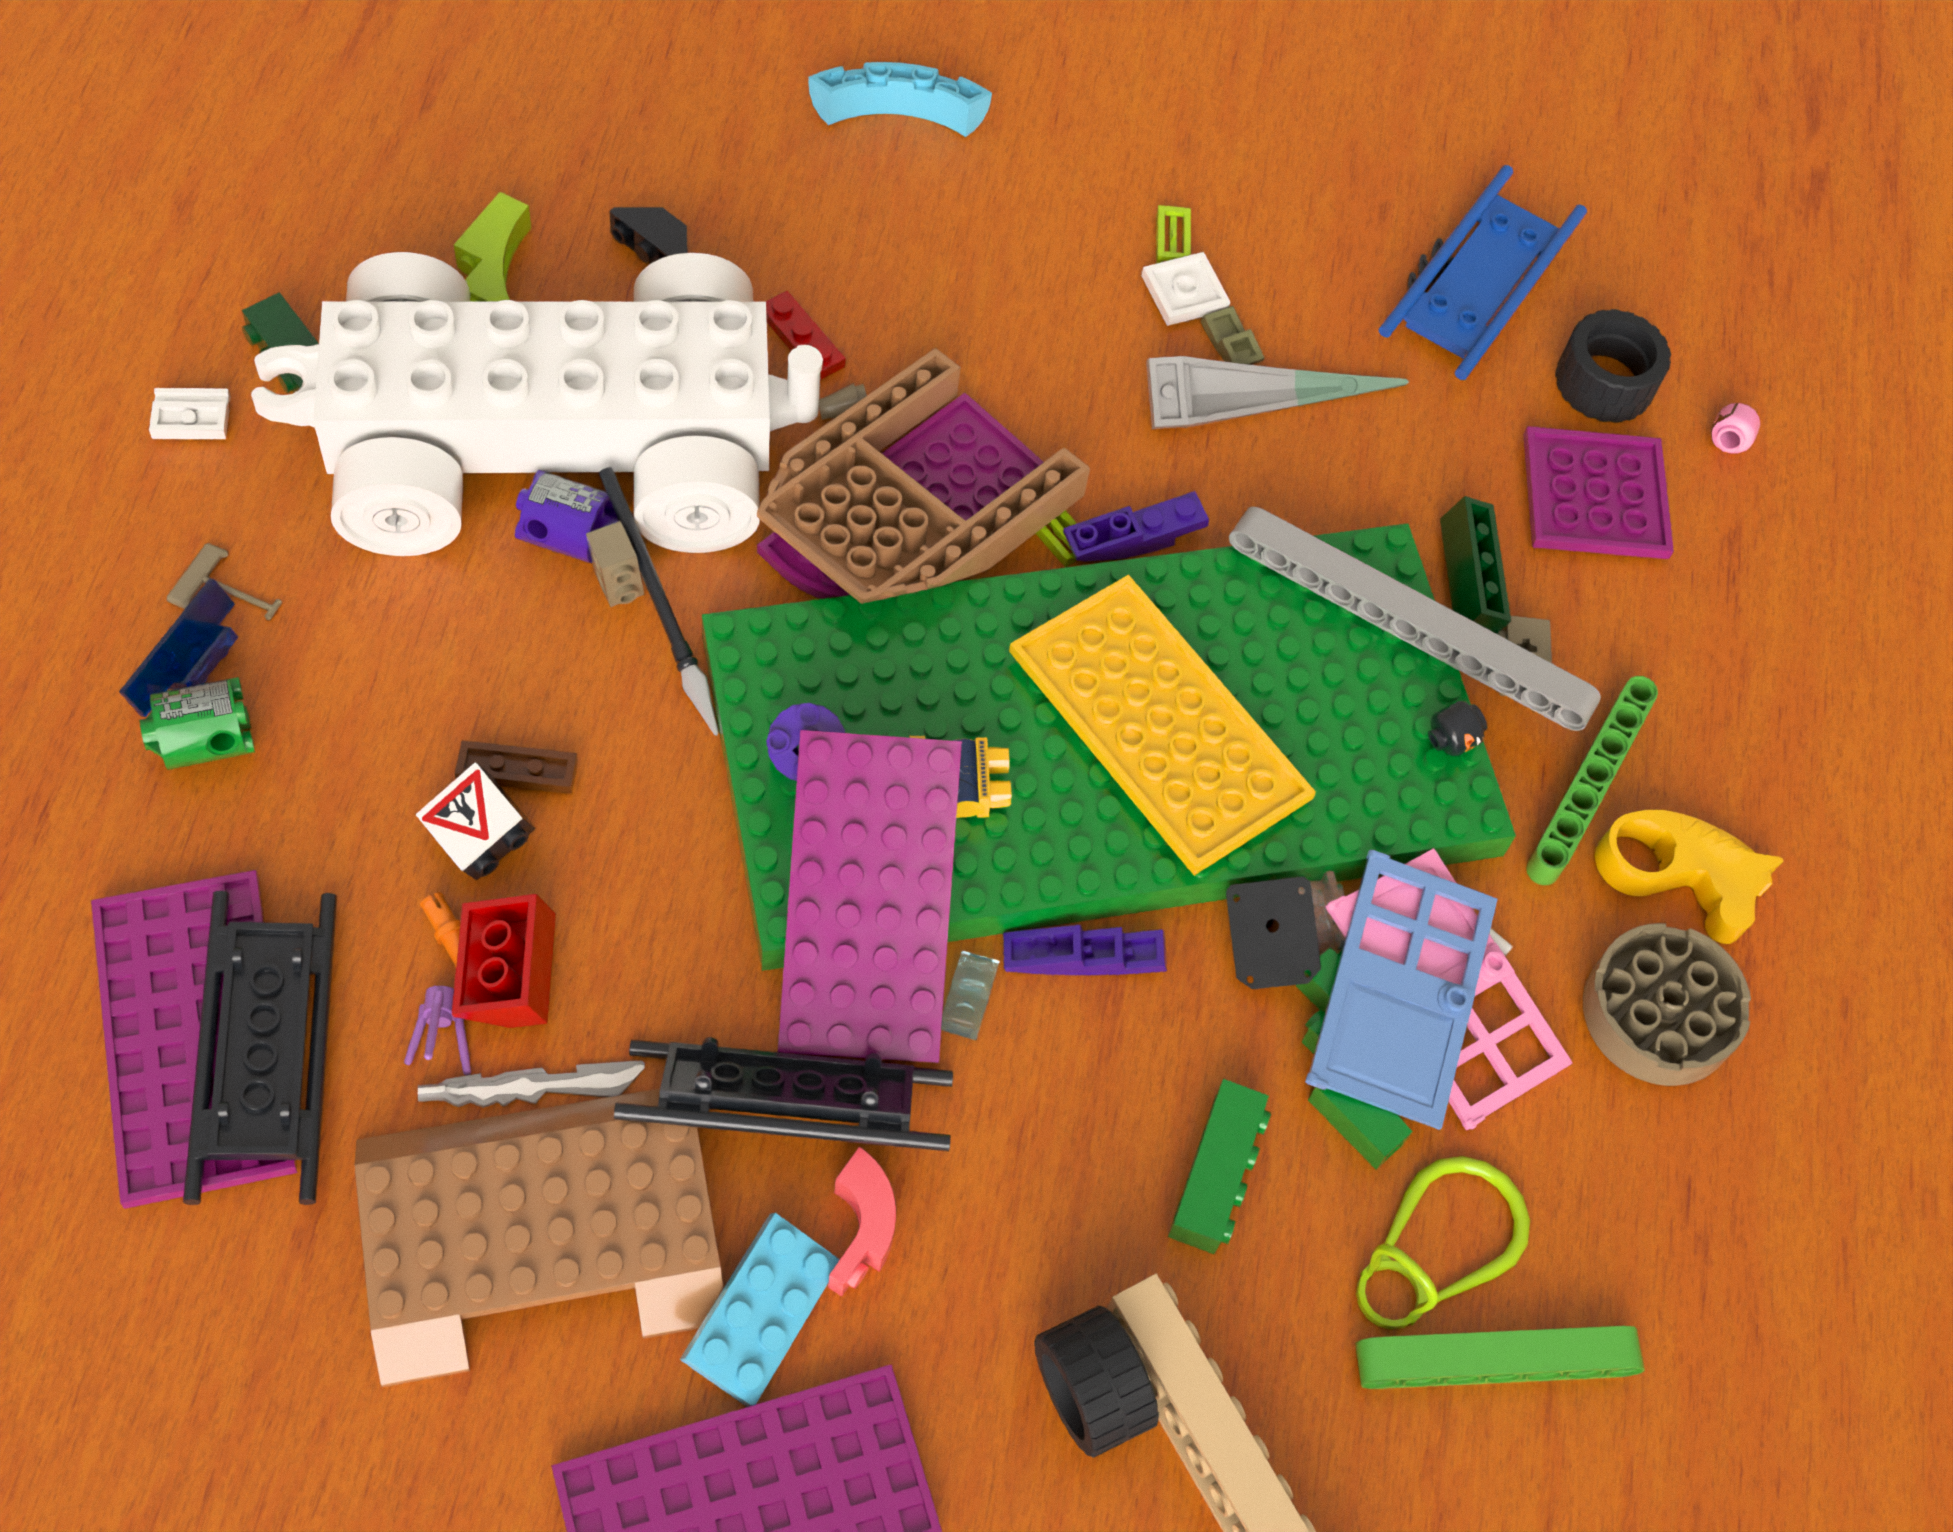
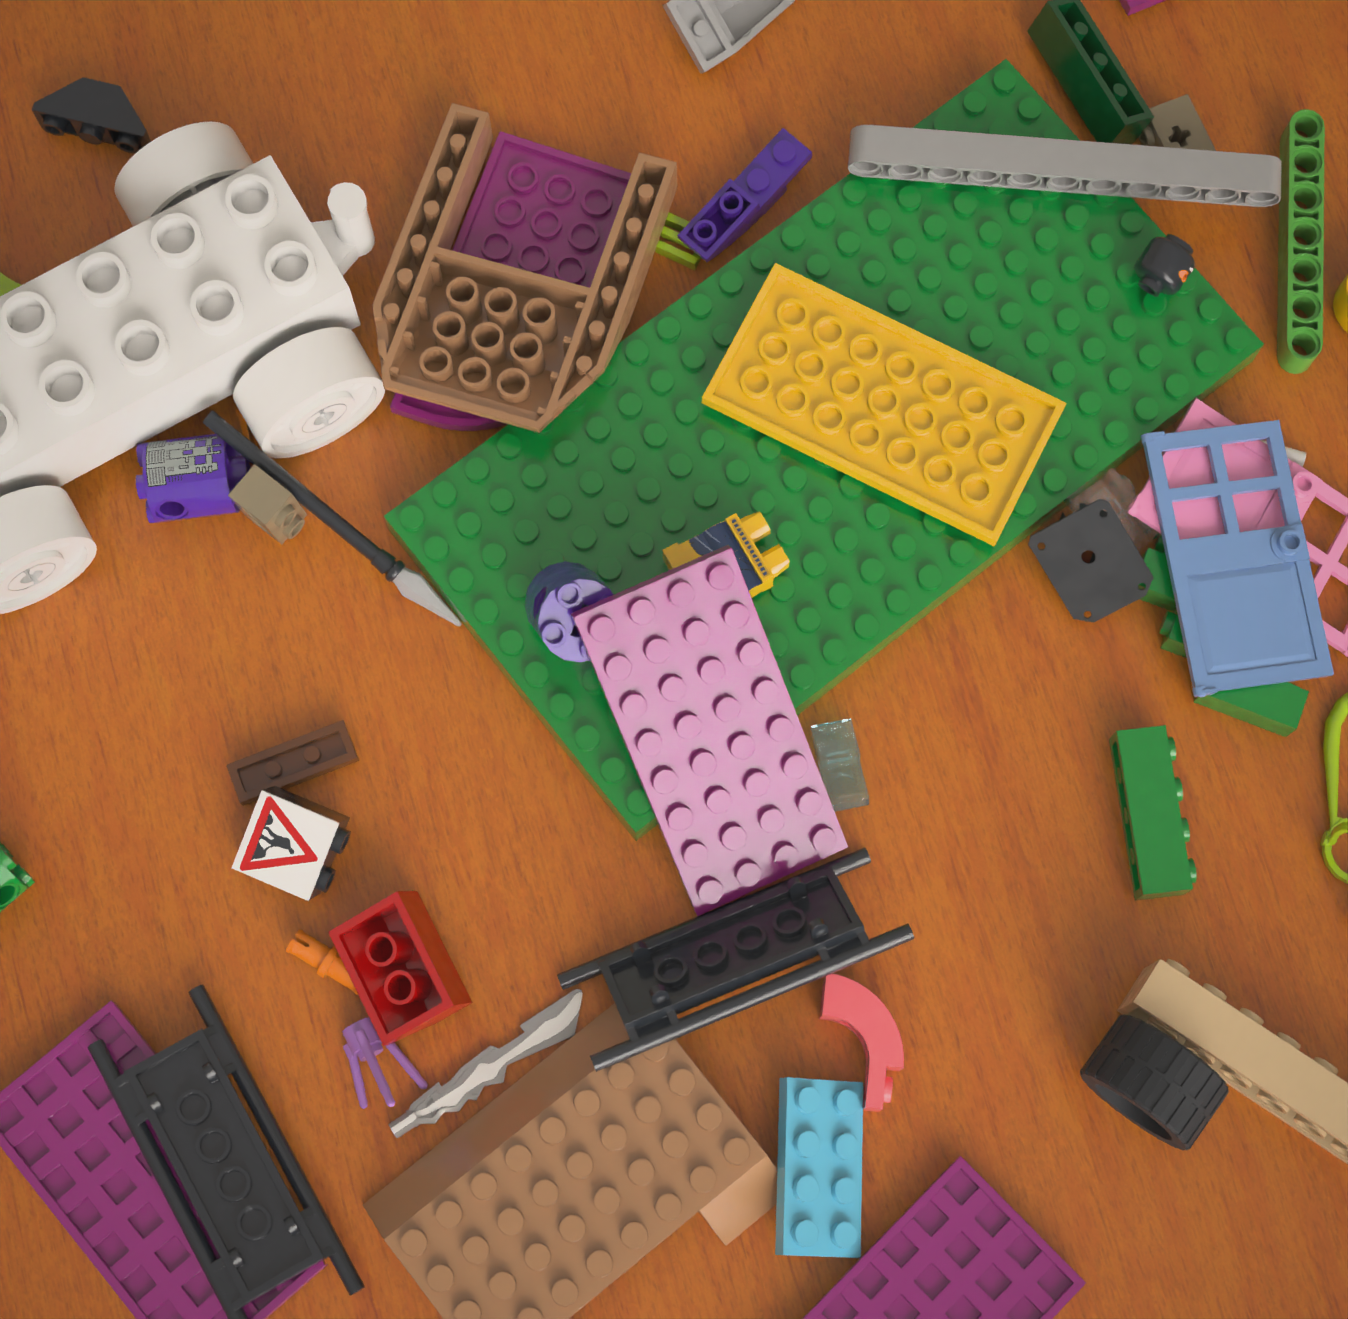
camera: 20 degrees left, 15 degrees up
(797, 328) = (300, 146): red plate -> none
(841, 400) = (389, 202): dark tan cone -> none
(1080, 952) = (922, 666): dark purple slope -> none

